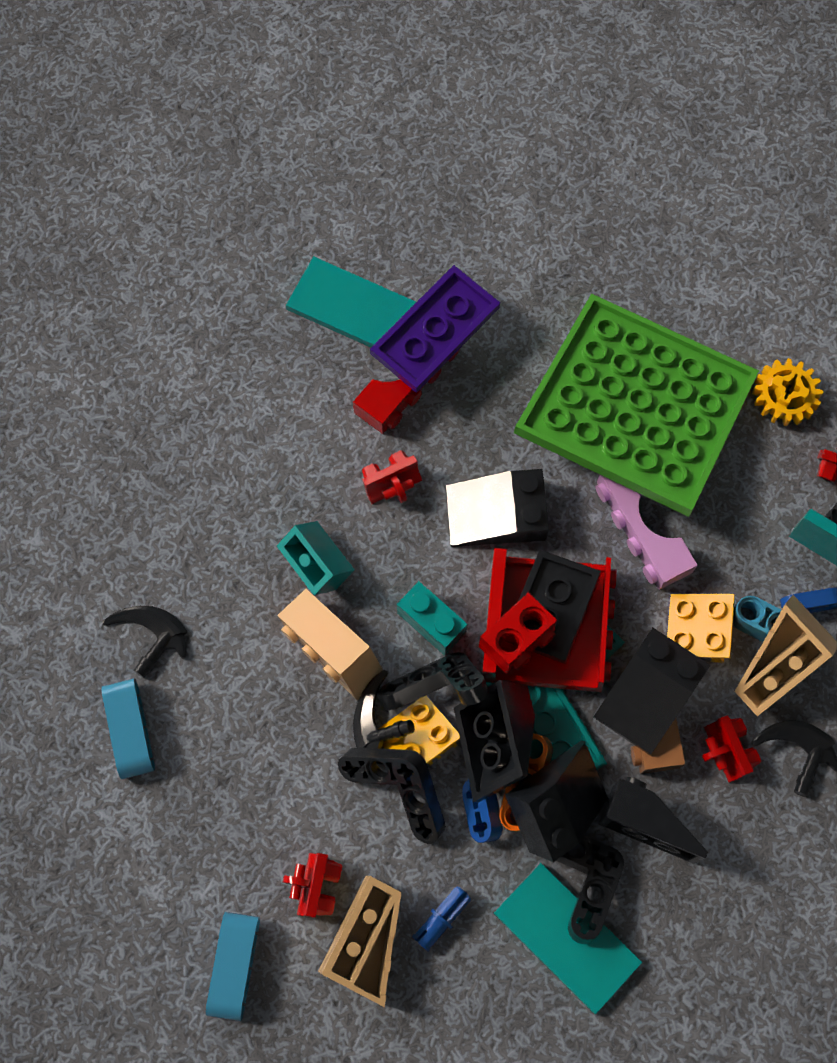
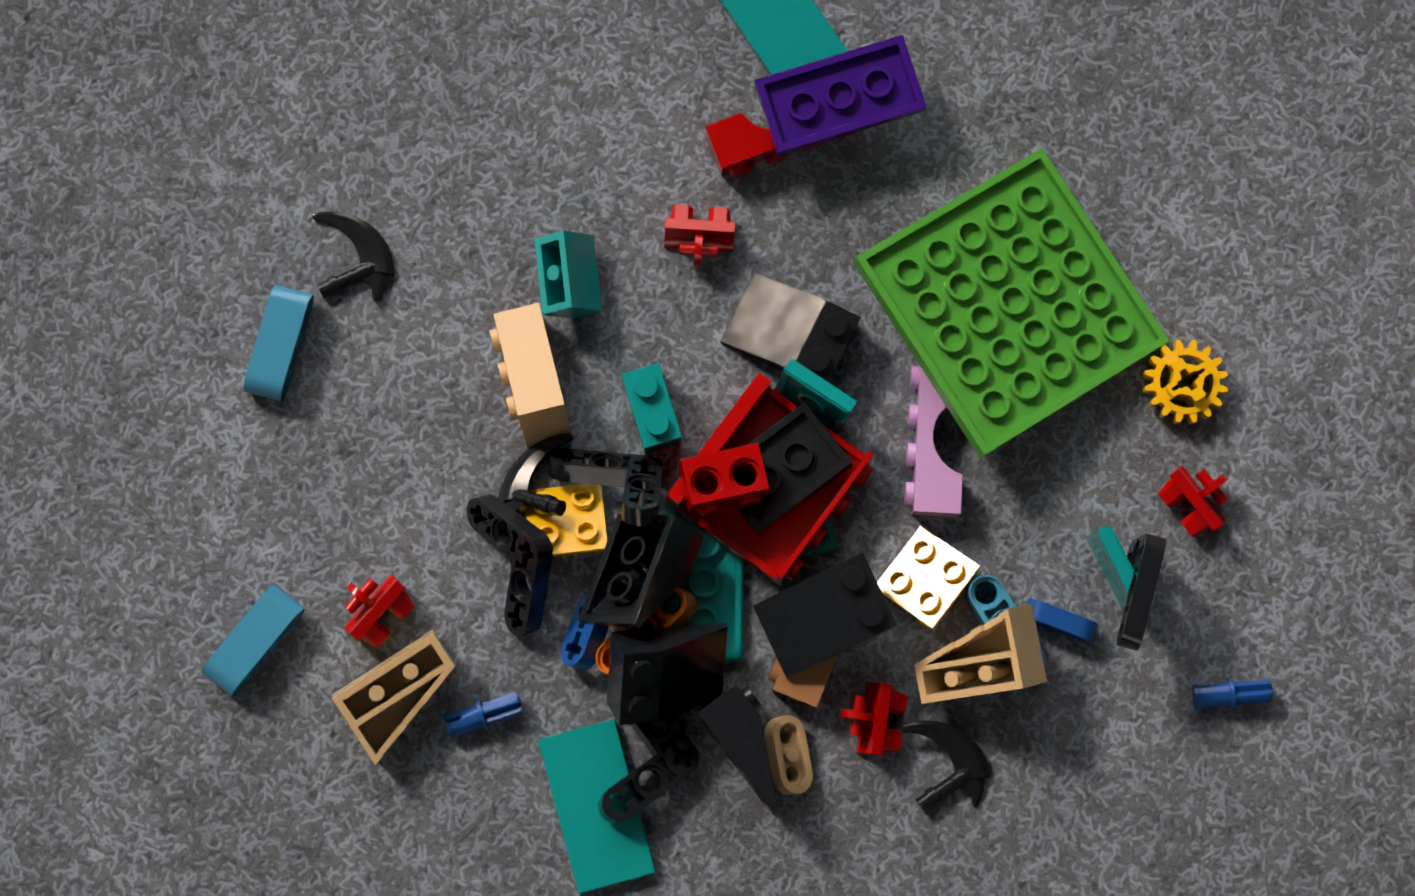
camera: 25 degrees right, 10 degrees up
(551, 537) = (824, 399): none -> teal tile
(687, 810) = (788, 755): none -> tan plate

